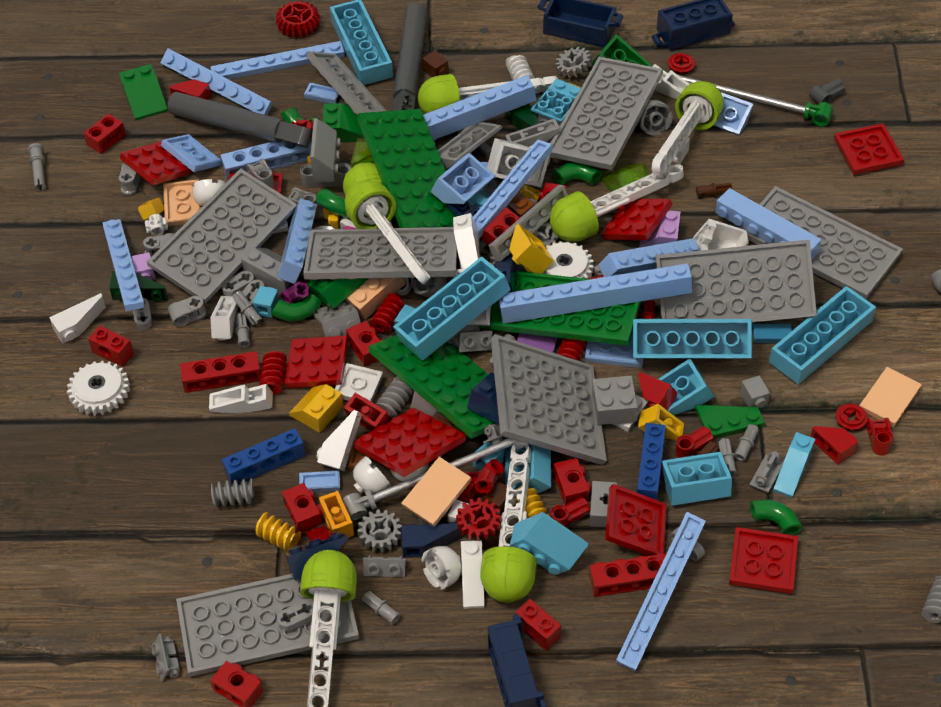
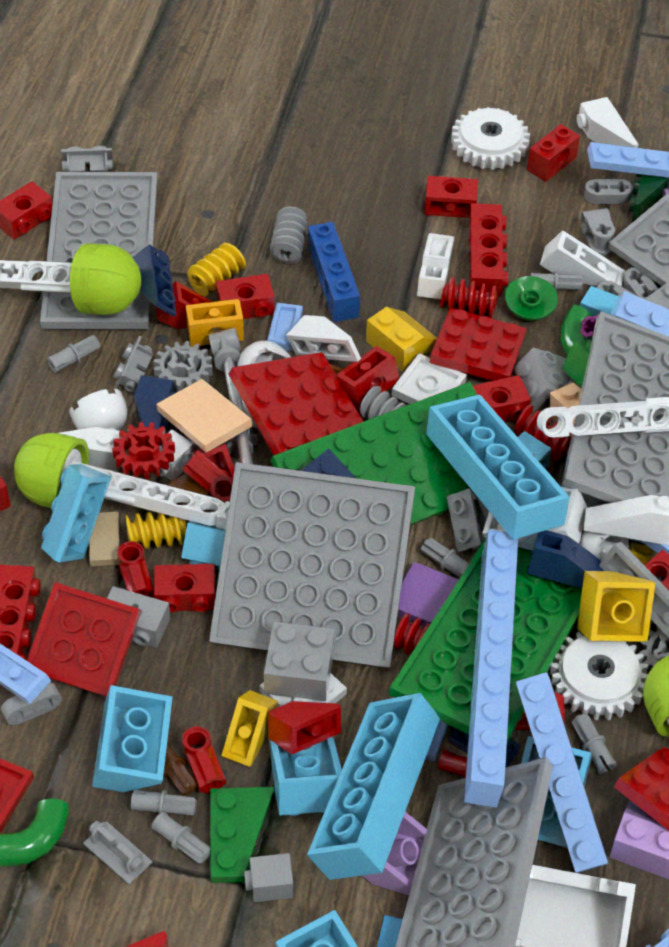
camera: 100 degrees right, 0 degrees up
(168, 401) = (450, 196): none -> red brick
(247, 308) = (596, 280): light grey axle -> none
(264, 338) = (533, 290): none -> green dish
(651, 460) = (191, 693): blue brick -> none
(794, 464) = (117, 894): medium azure slope -> none

